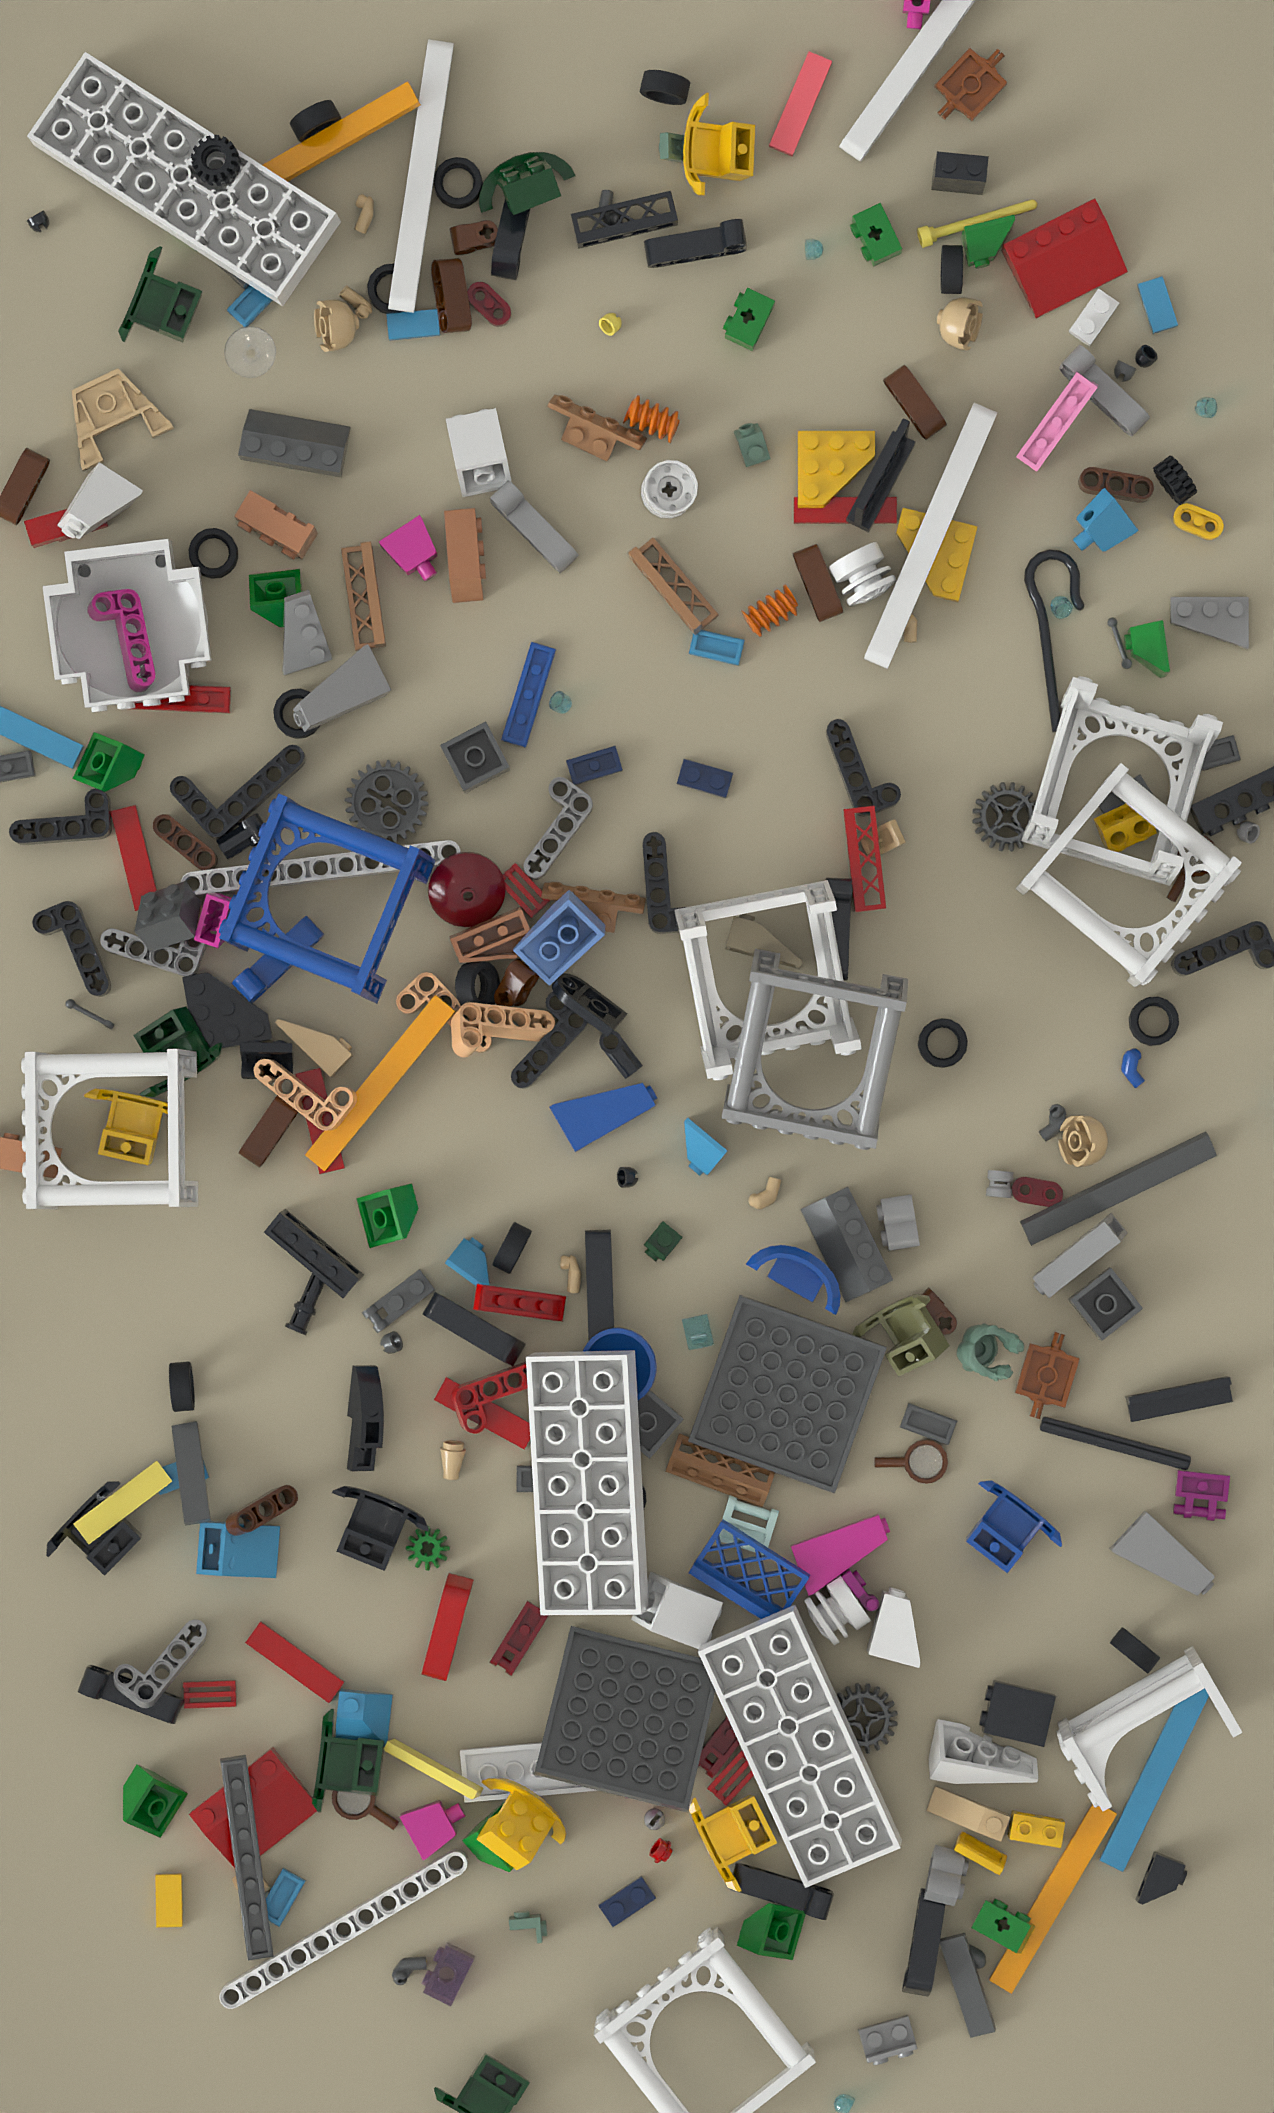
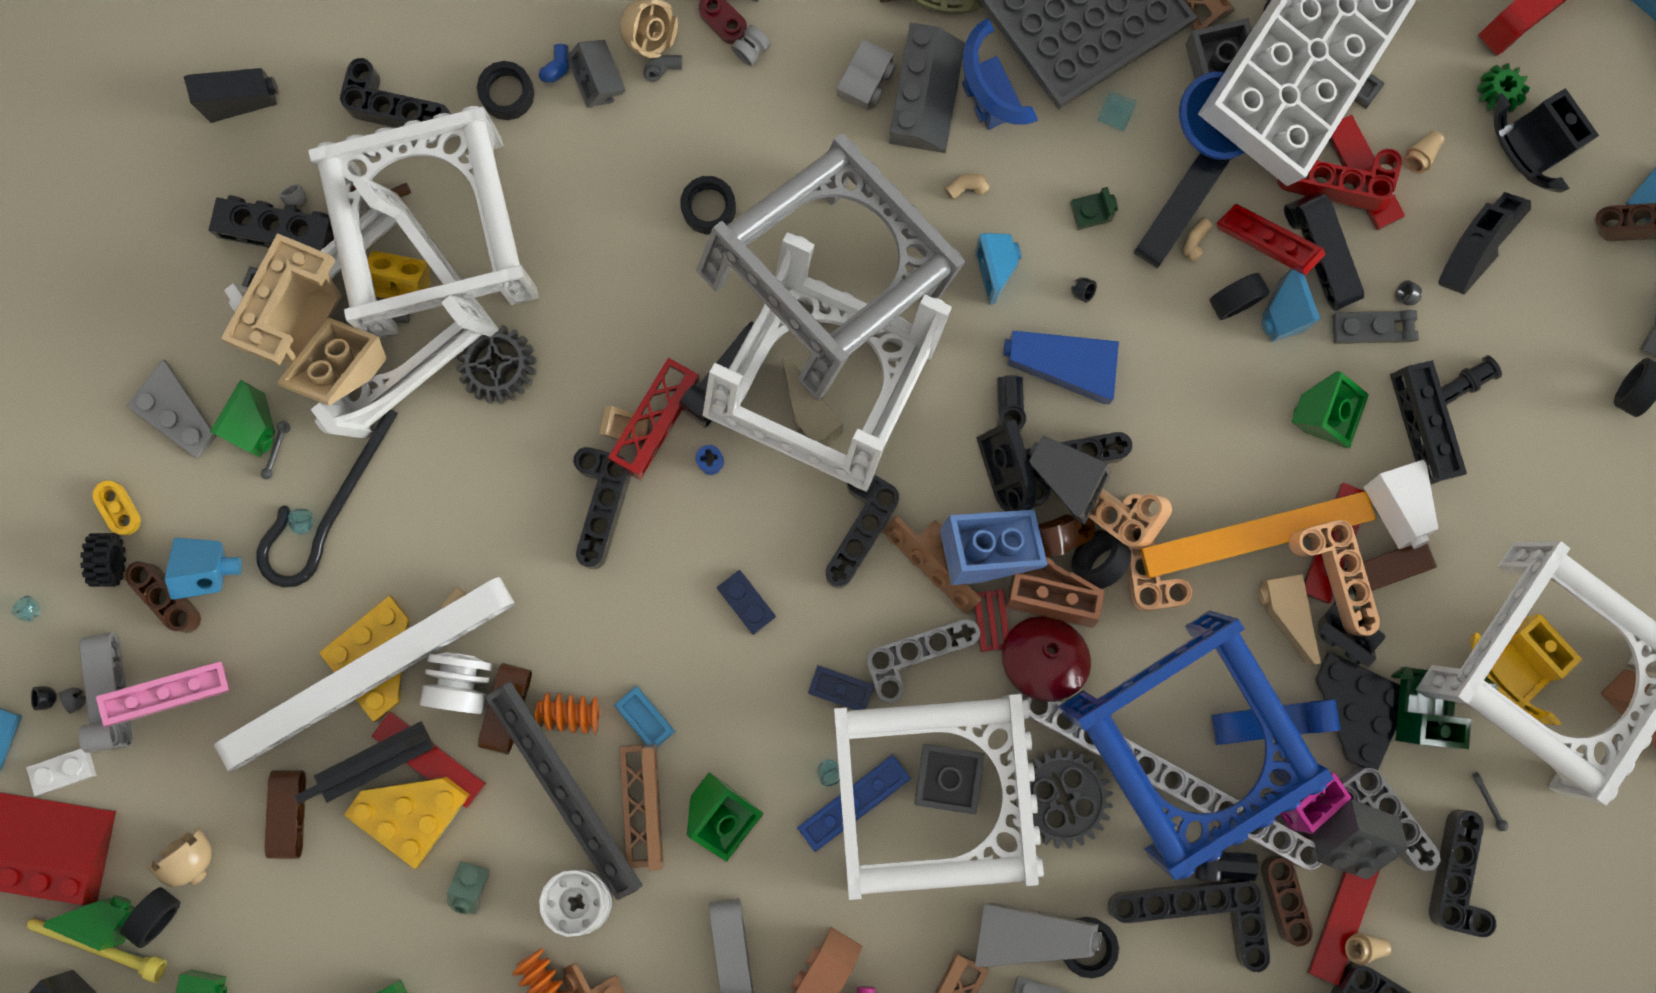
camera: 145 degrees left, 5 degrees down
(110, 848) = (1365, 948): none -> tan cone
(293, 1178) = (1405, 503): none -> white slope
(470, 823) = (1015, 866): none -> white arch
(541, 1023) = (1070, 475): none -> dark grey slope
(613, 617) = (720, 817): none -> green slope
(734, 556) = (563, 791): none -> dark grey plate
(804, 850) = (702, 455): none -> blue bush
(1097, 1081) = (595, 73): none -> dark grey hinge
(1112, 728) = (334, 363): none -> tan slope
(1174, 742) = (284, 303): none -> tan windscreen

